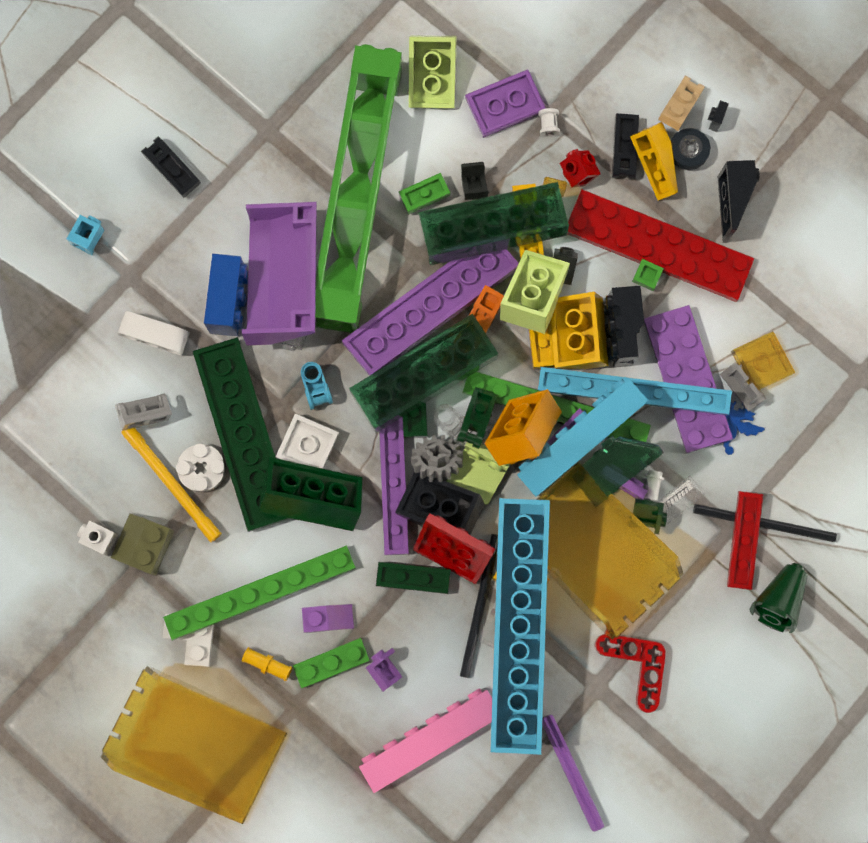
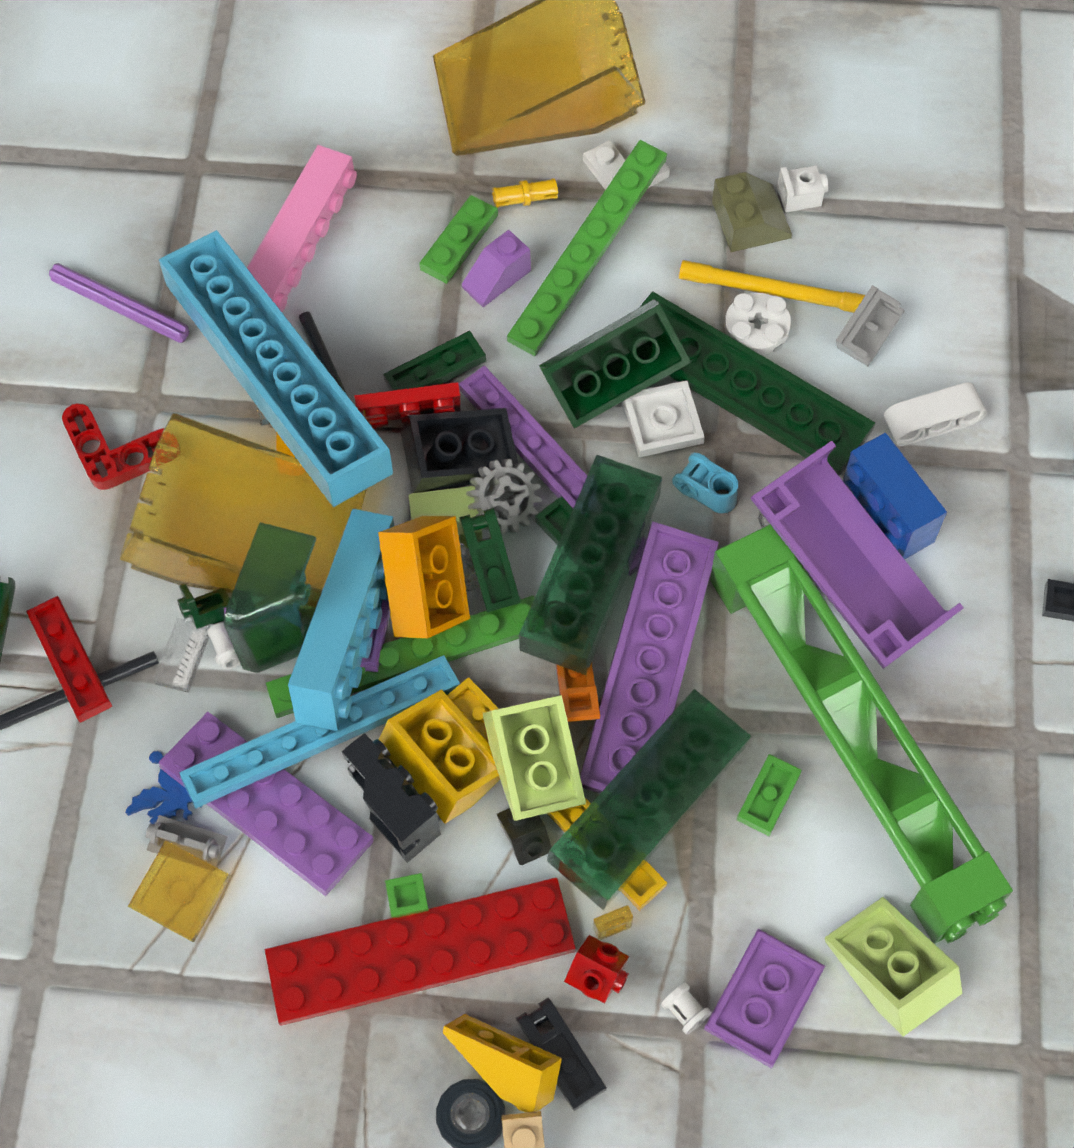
camera: 150 degrees right, 15 degrees down
(383, 670) = (396, 261): medium lavender bracket -> none
(452, 426) = (520, 541): clear piece -> none
(474, 180) = (719, 853): pearl dark grey bracket -> none
(735, 189) = (360, 1088): black slope -> none

